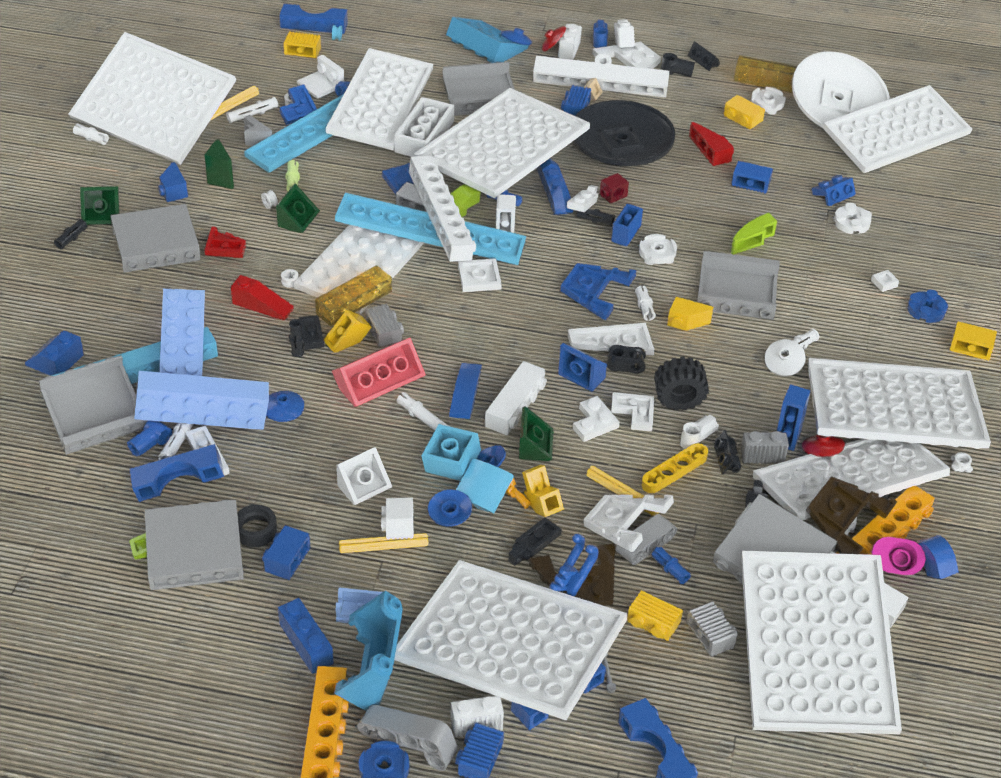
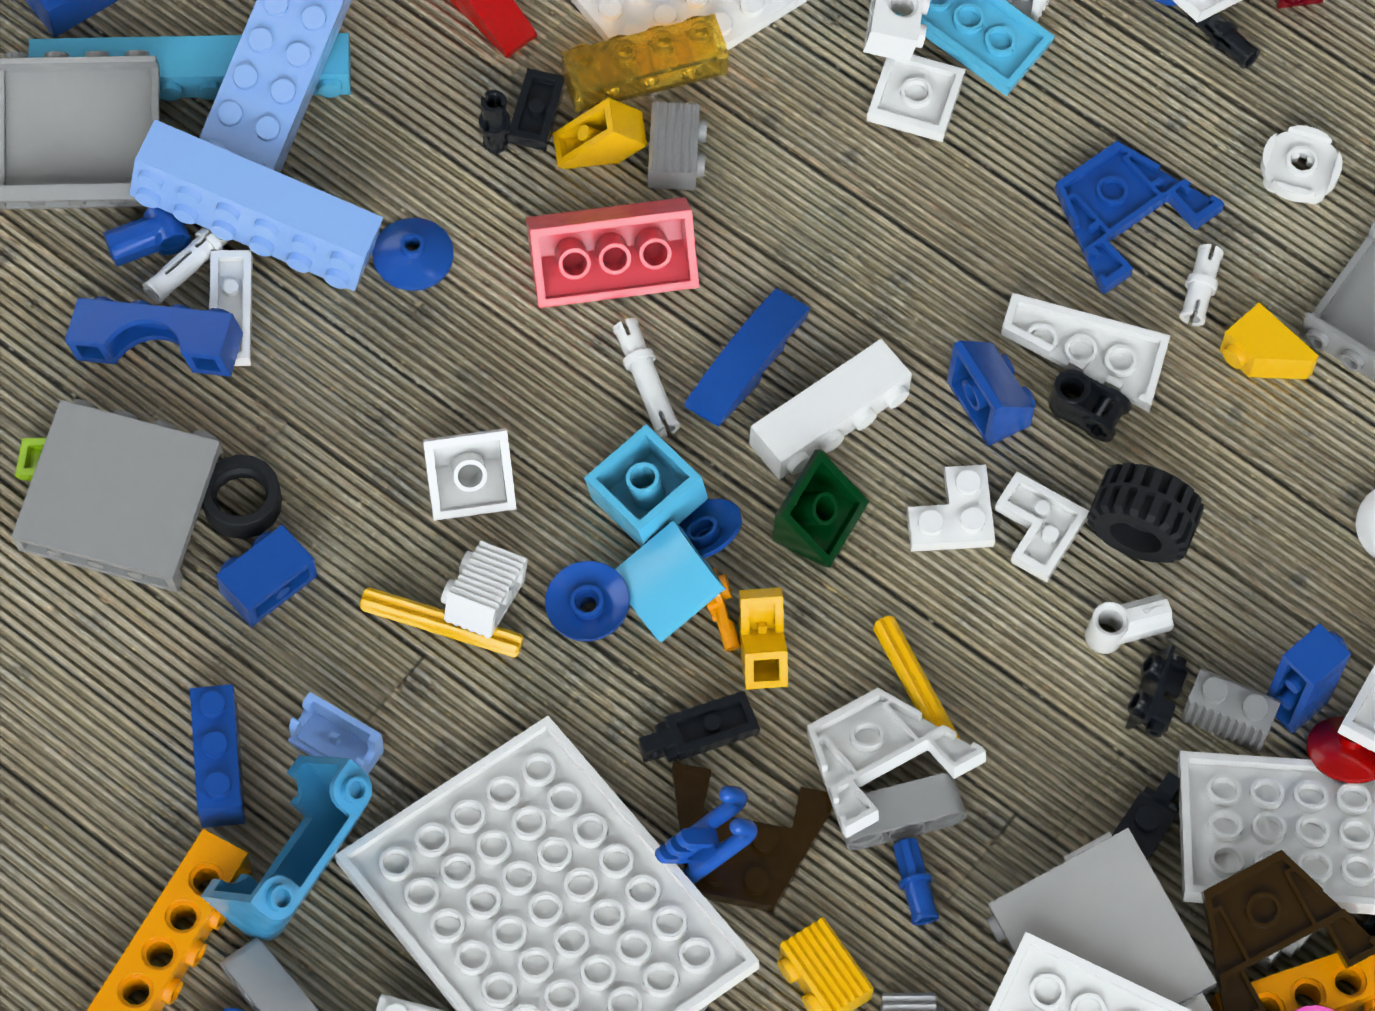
camera: 25 degrees right, 20 degrees up
(627, 224) = (1266, 86): blue brick -> none
(671, 465) = (1044, 686): yellow beam -> none

